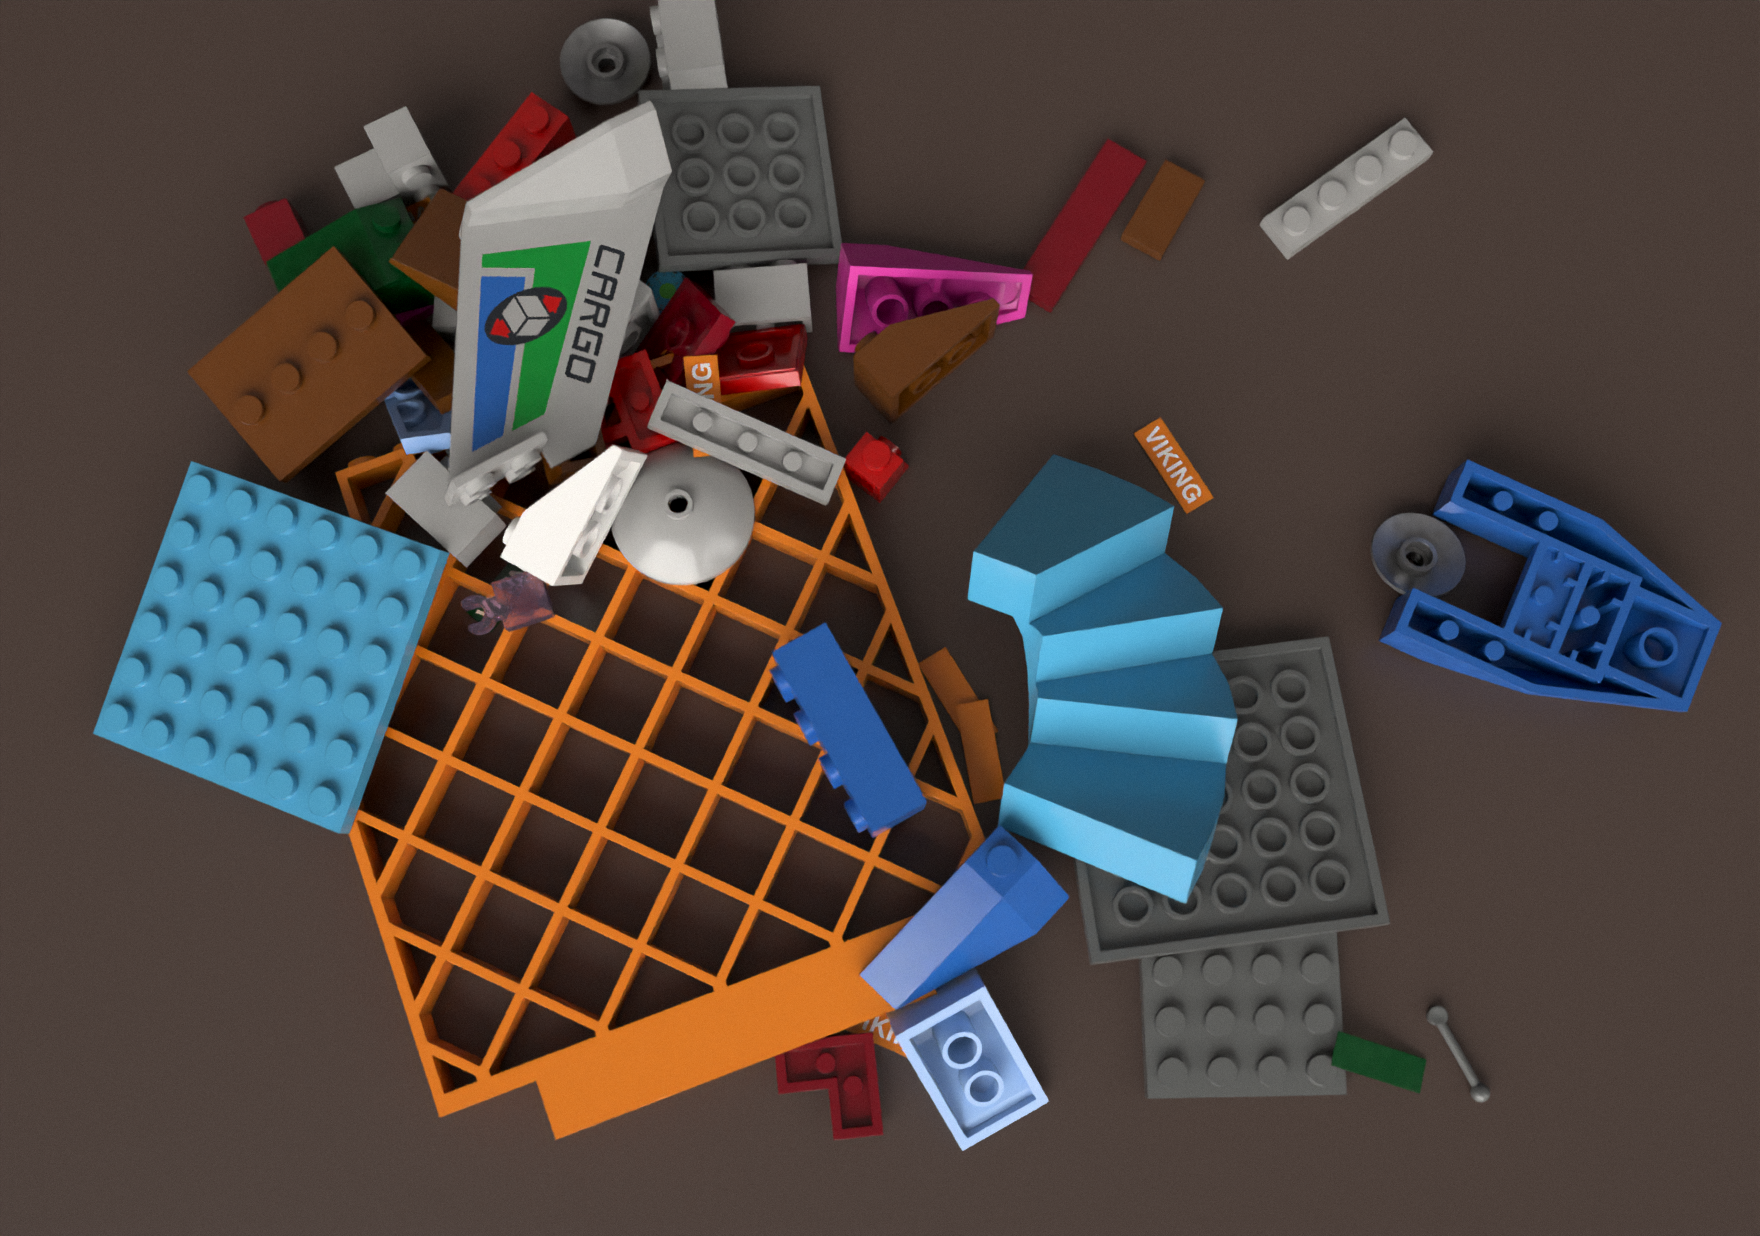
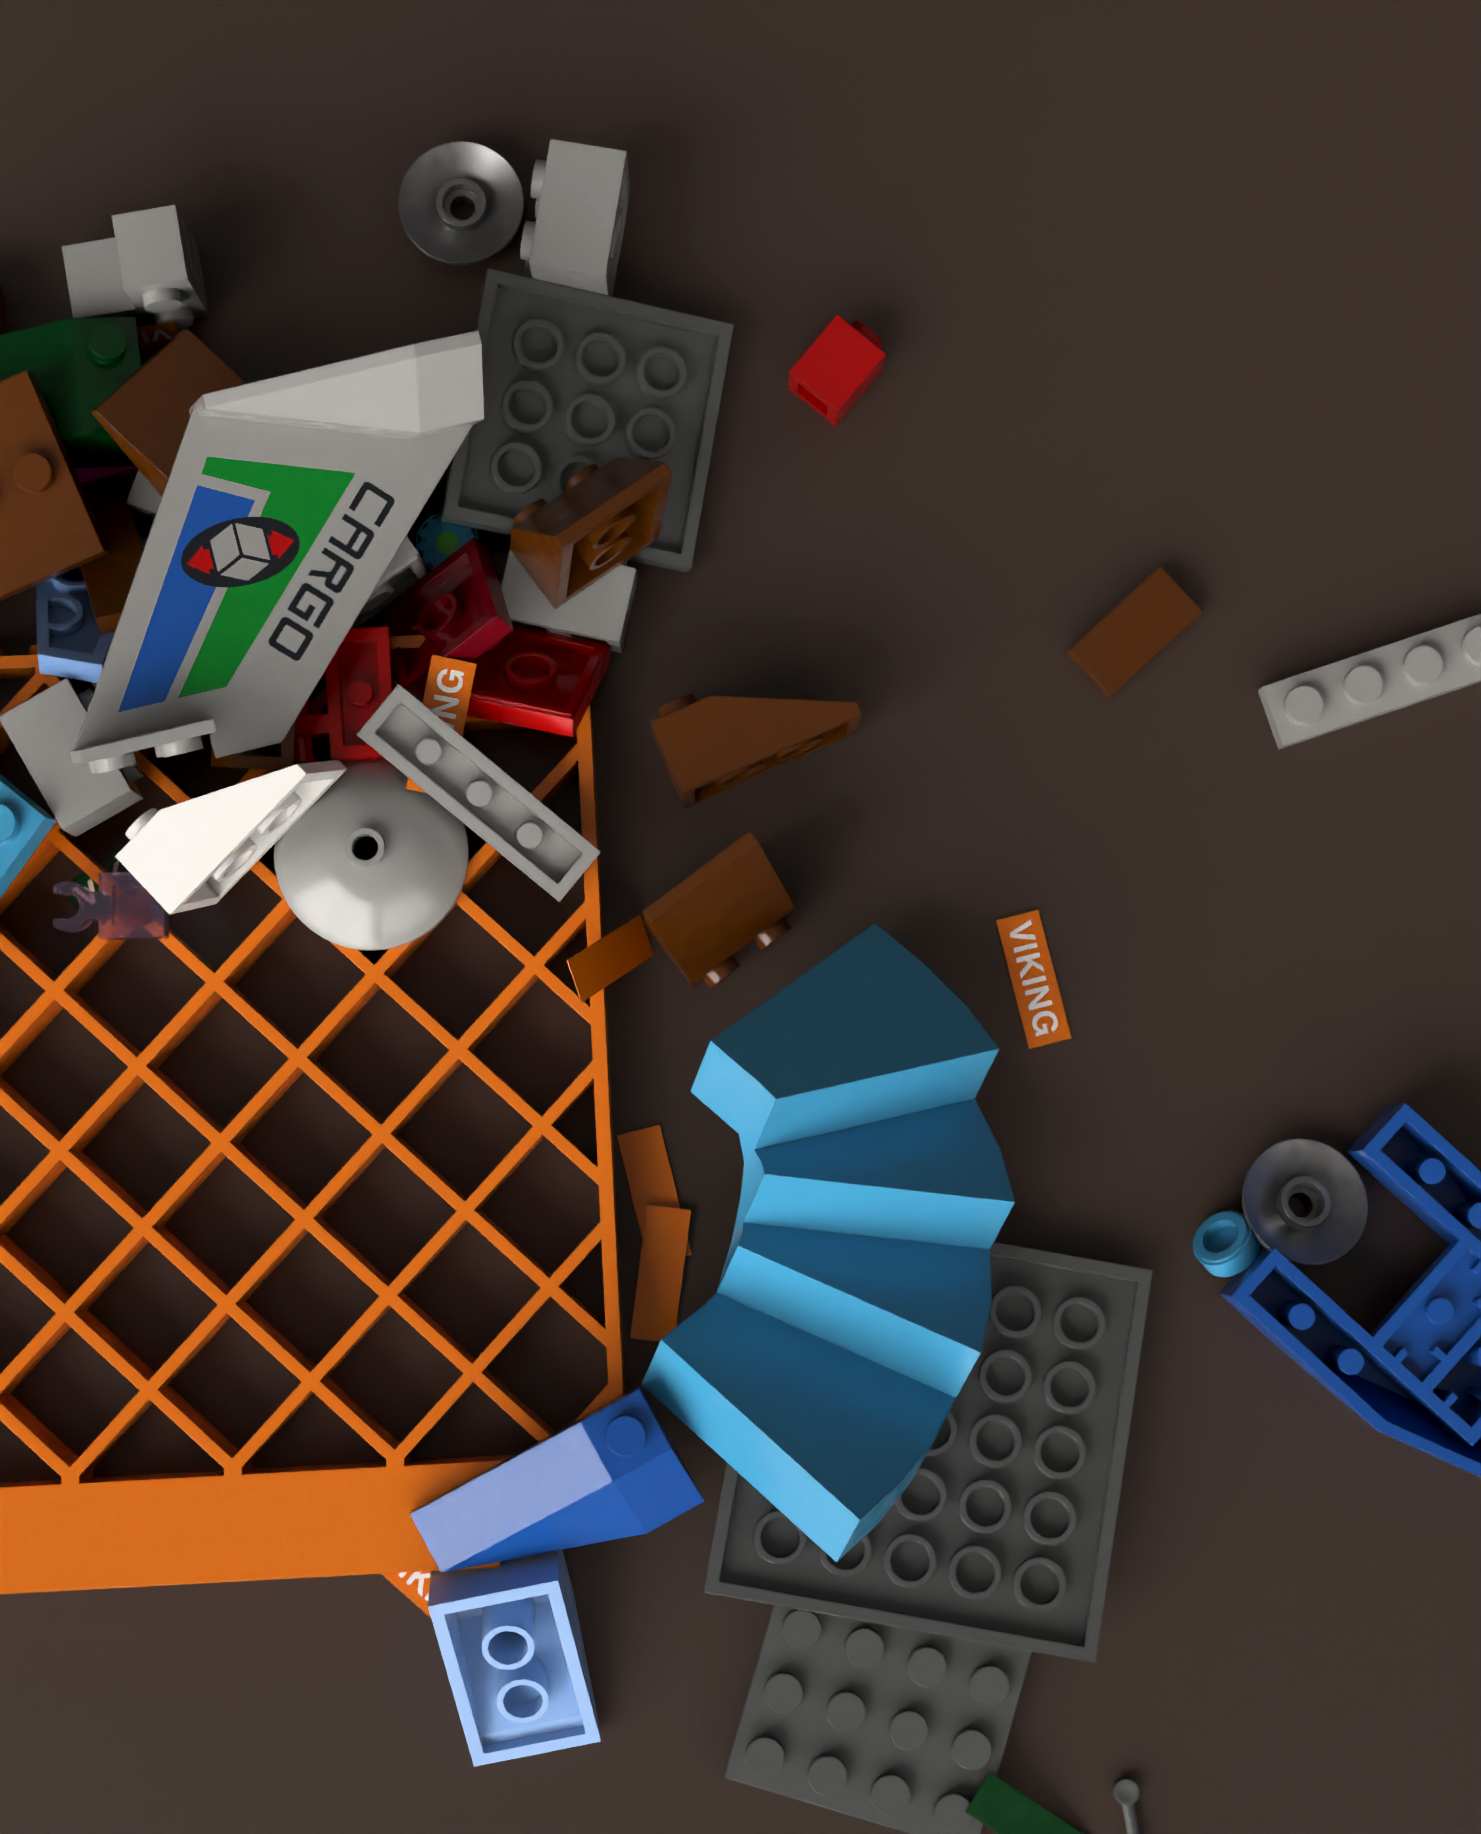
camera: 15 degrees right, 5 degrees up
(526, 138) = (301, 310): red brick -> none
(769, 235) = (591, 526): none -> reddish brown slope
(848, 1071) = (363, 1625): dark red plate -> none
(849, 731) = (486, 1212): blue brick -> none
(875, 465) = (643, 862): red brick -> none
(875, 535) = (610, 958): none -> orange sticker
(898, 284) = (757, 641): dark pink wedge -> none
(900, 94) = (837, 368): none -> red brick
(943, 476) = (721, 913): none -> reddish brown slope
(1081, 223) = (1017, 619): dark red tile -> none
(1373, 602) = (1225, 1244): none -> dark azure tile

